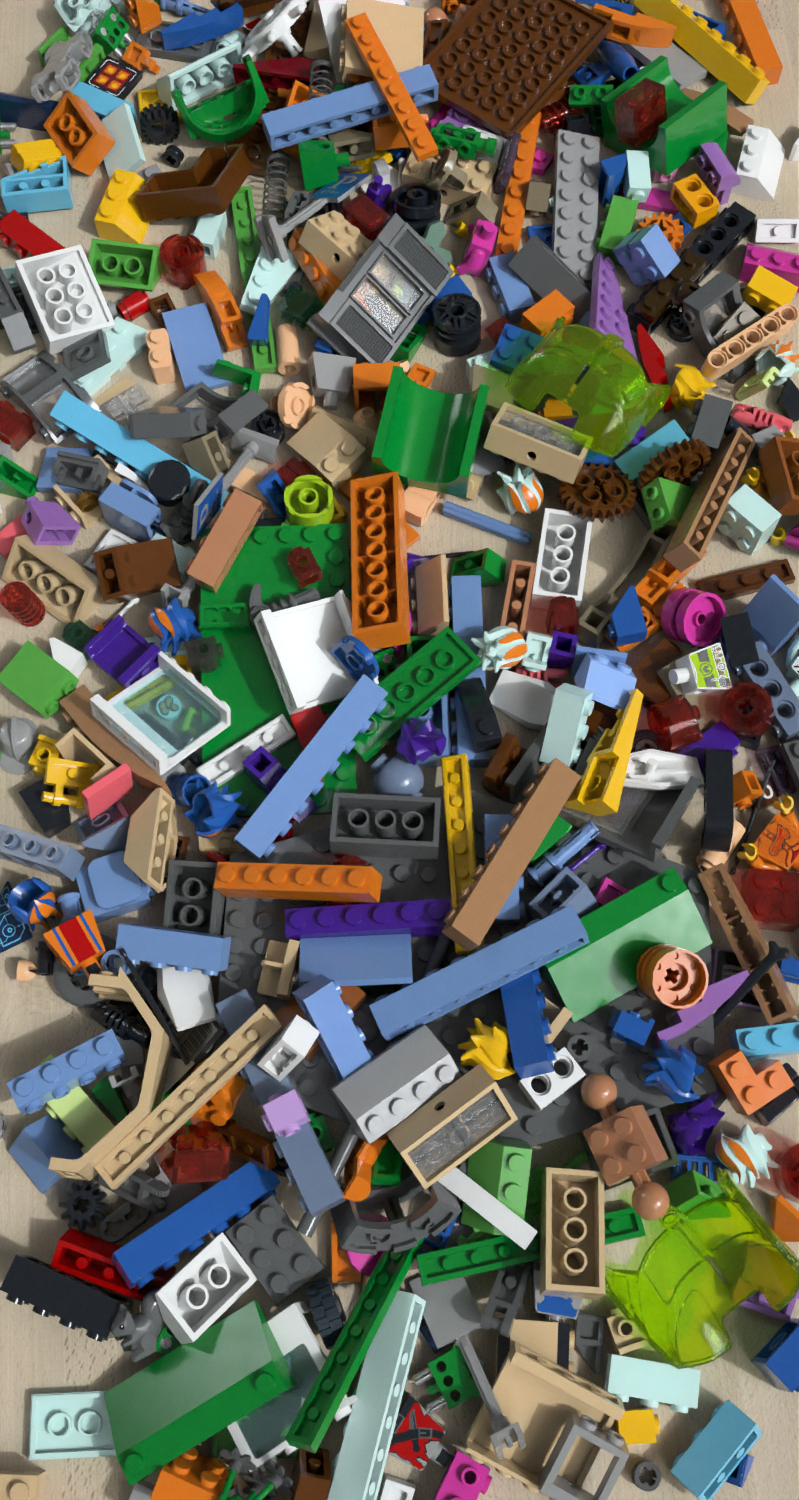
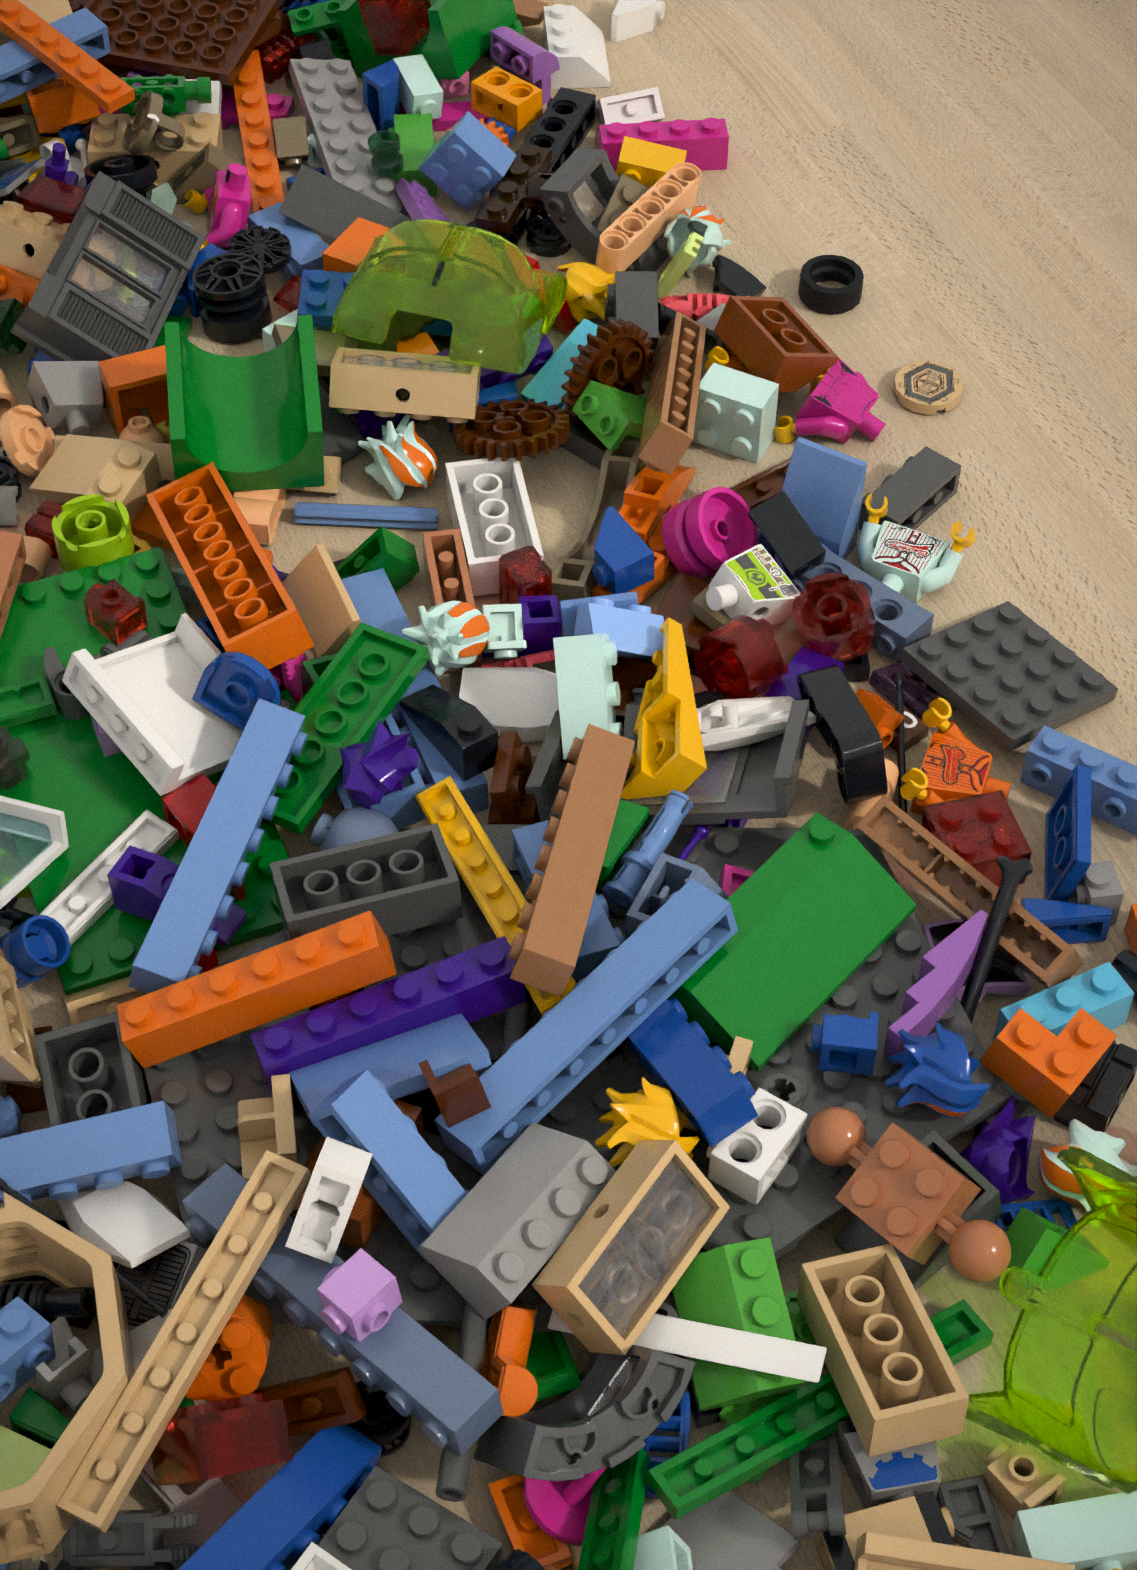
camera: 20 degrees left, 20 degrees down
(215, 811) = (85, 956): blue hair -> none
(273, 490) = (38, 543): blue slope -> none
(384, 997) = (456, 1093): none -> reddish brown panel
(487, 291) = (272, 248): none -> black wheel
(506, 162) = (232, 108): clear purple slope -> none
(594, 232) = (386, 156): none -> clear green wheel
(685, 979) = (877, 945): orange wheel -> none

